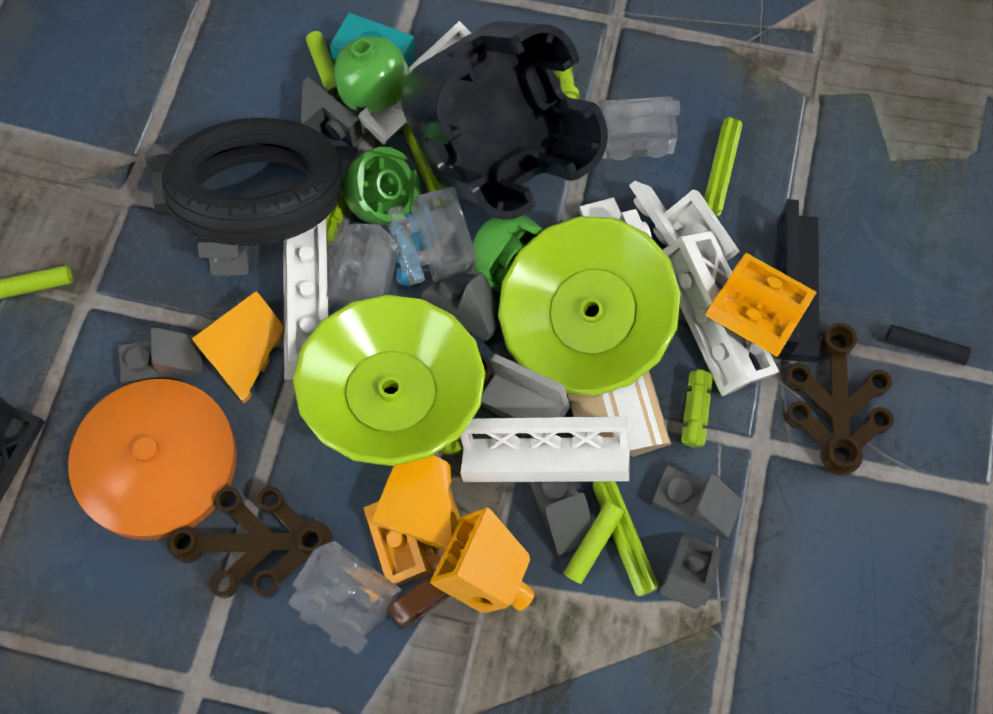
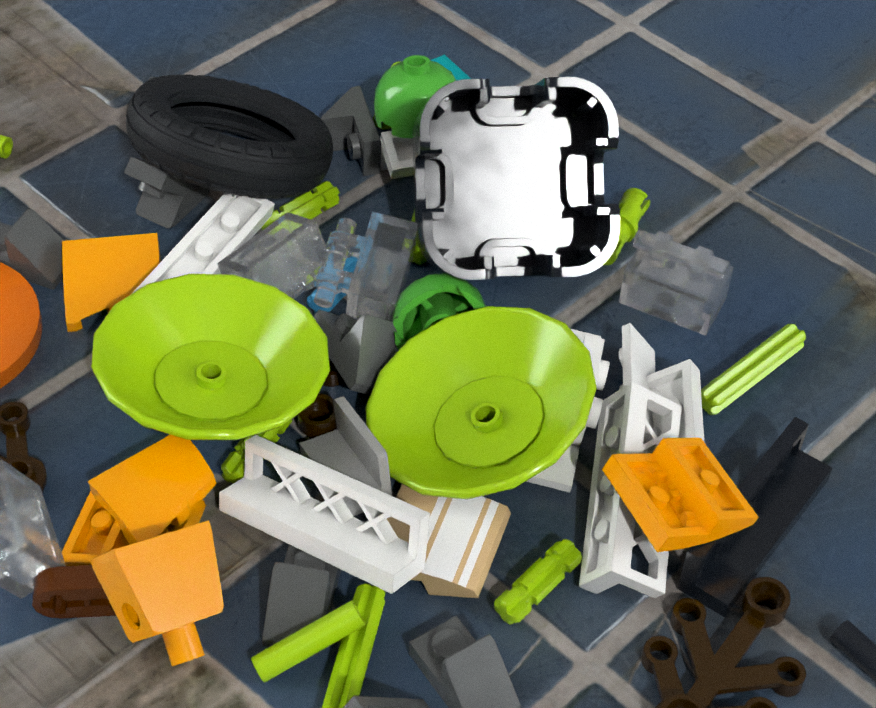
camera: 30 degrees right, 20 degrees down
(380, 182) = (352, 191): bright green cylinder -> none

